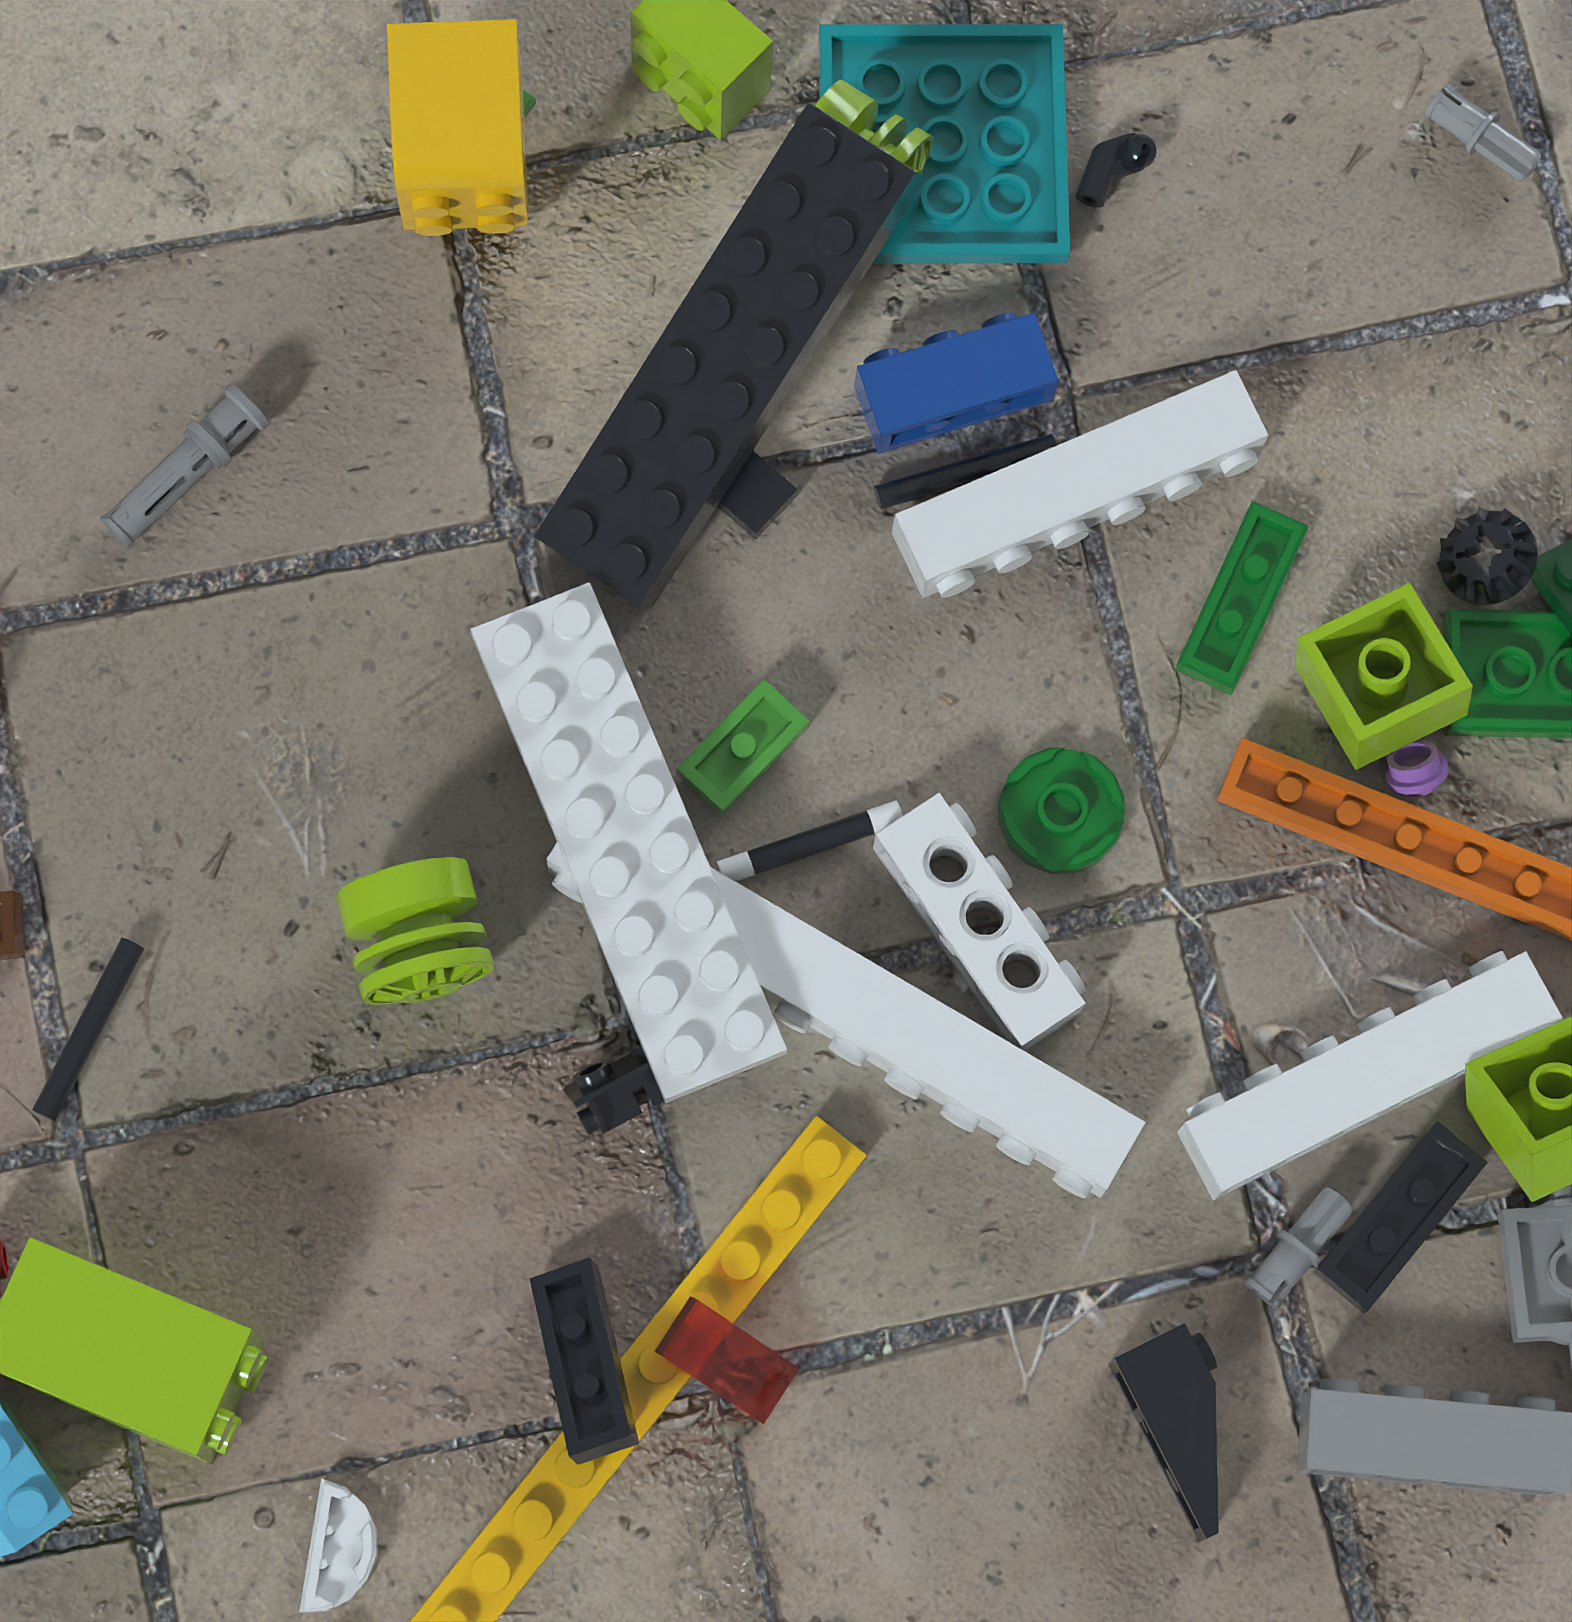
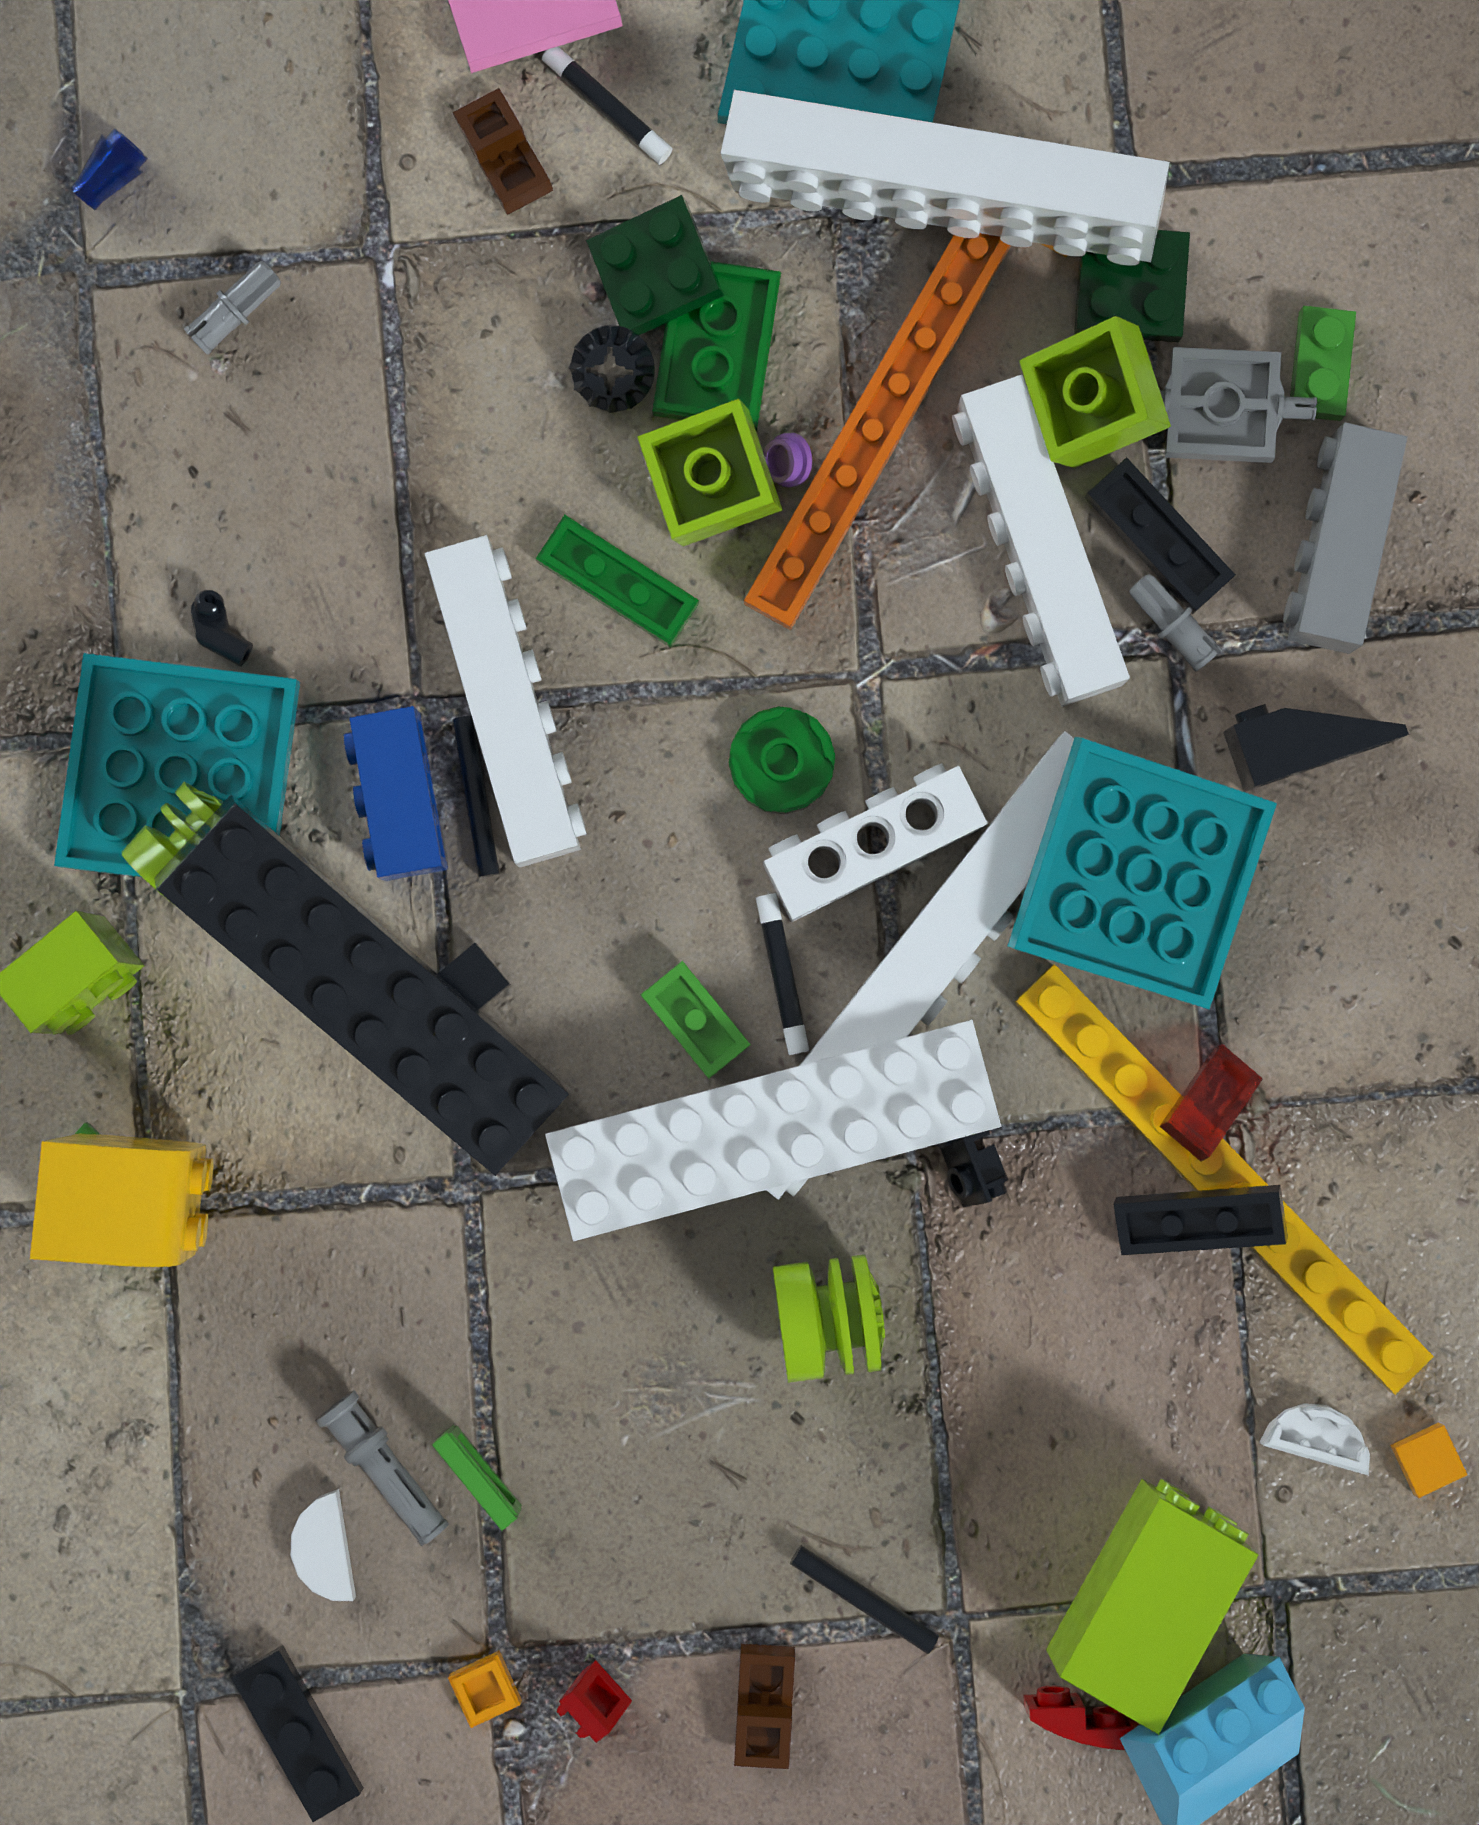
camera: 75 degrees left, 10 degrees up
(85, 413) = (322, 1550): none -> white tile
(186, 569) = (478, 1476): none -> bright green tile
(988, 1236) = (1141, 873): none -> teal plate

